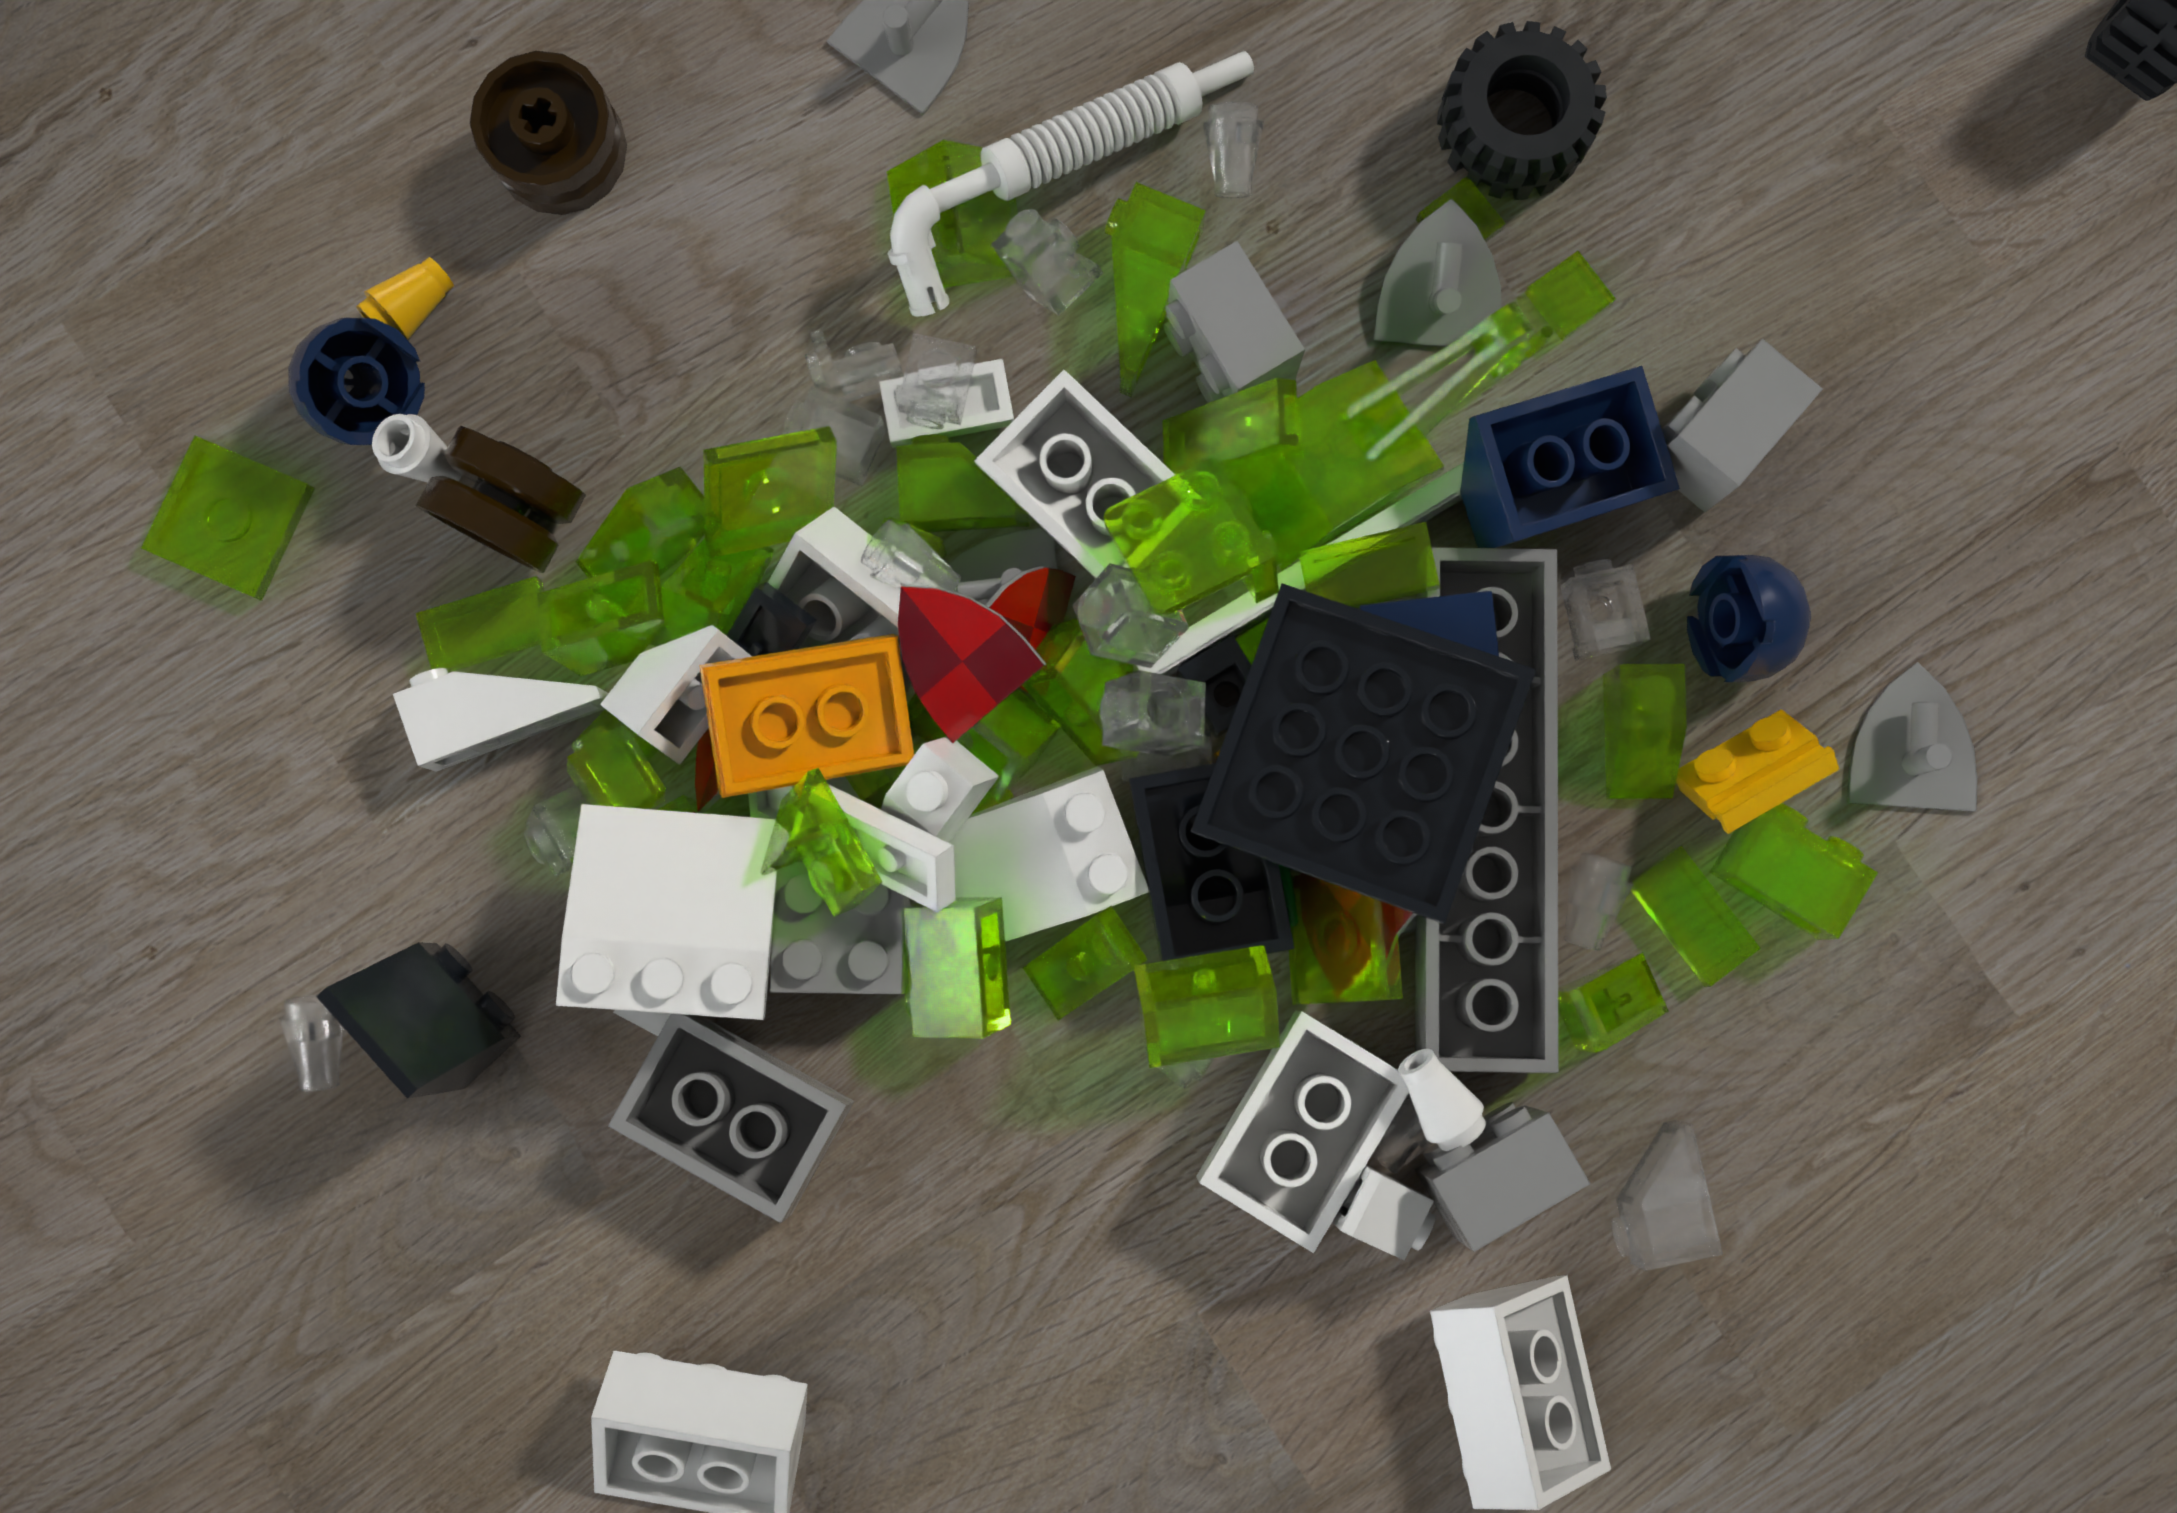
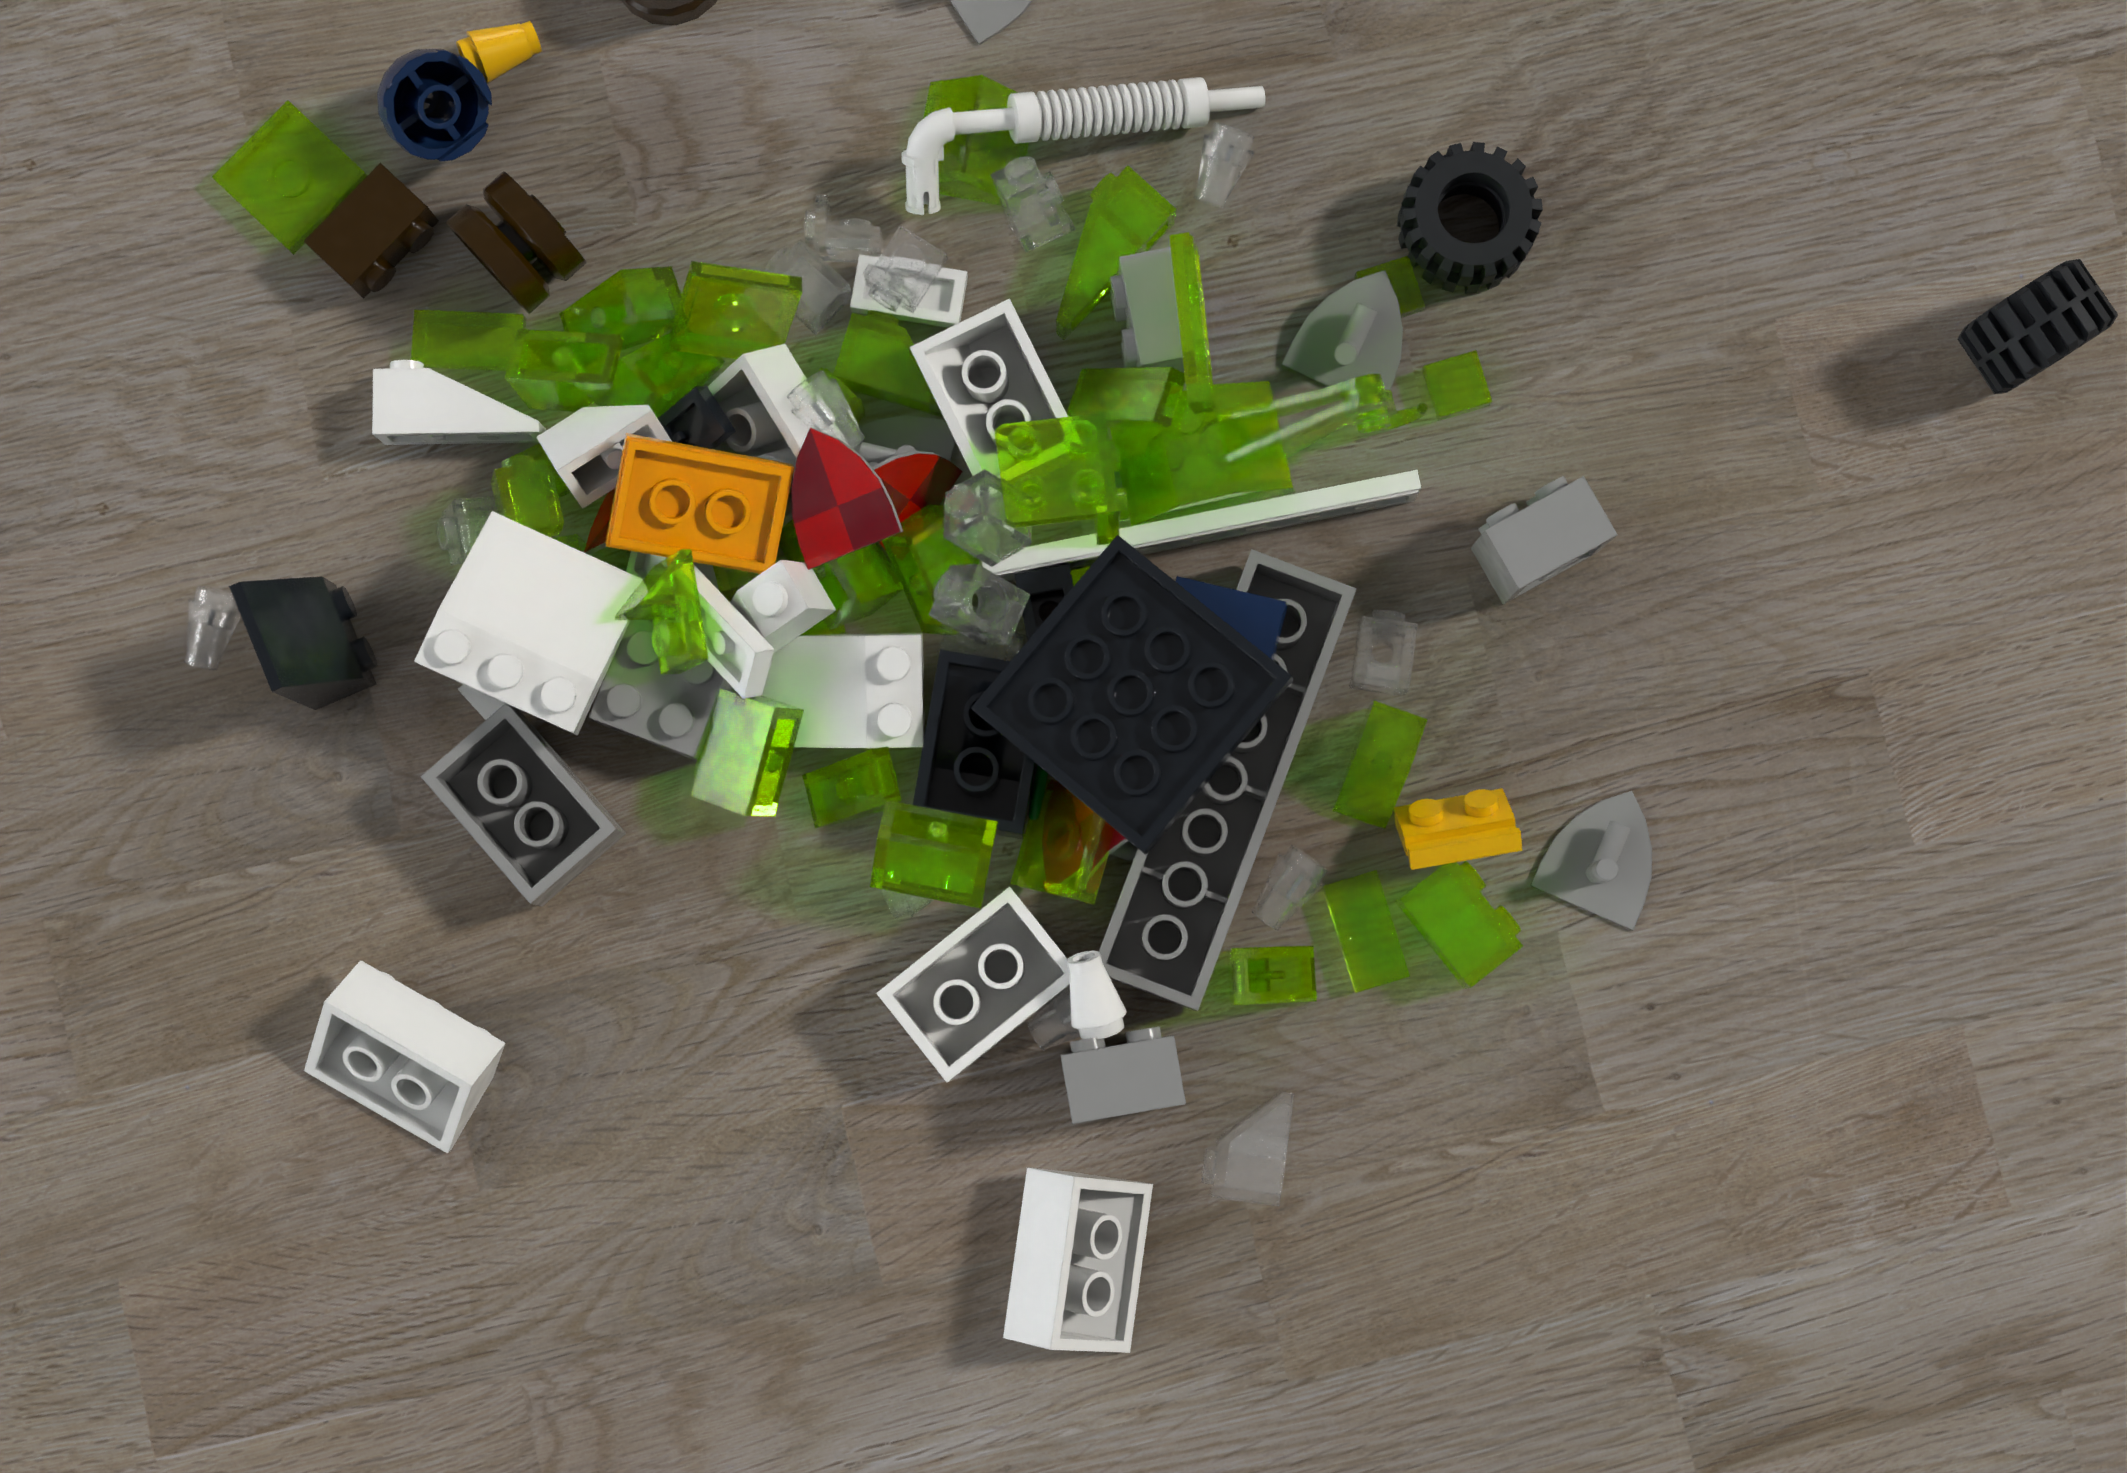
camera: 20 degrees right, 0 degrees up
(339, 544) = (373, 231): none -> dark brown brick
(411, 449) = (459, 175): white cone -> none
(1281, 321) = (1192, 323): none -> clear neon green tile
(1372, 567) = (1200, 549): clear neon green tile -> none
(1386, 1214) = (1019, 1075): white slope -> none
(1564, 458) = (1391, 517): dark blue slope -> none
(1749, 617) = (1501, 704): dark blue cylinder -> none

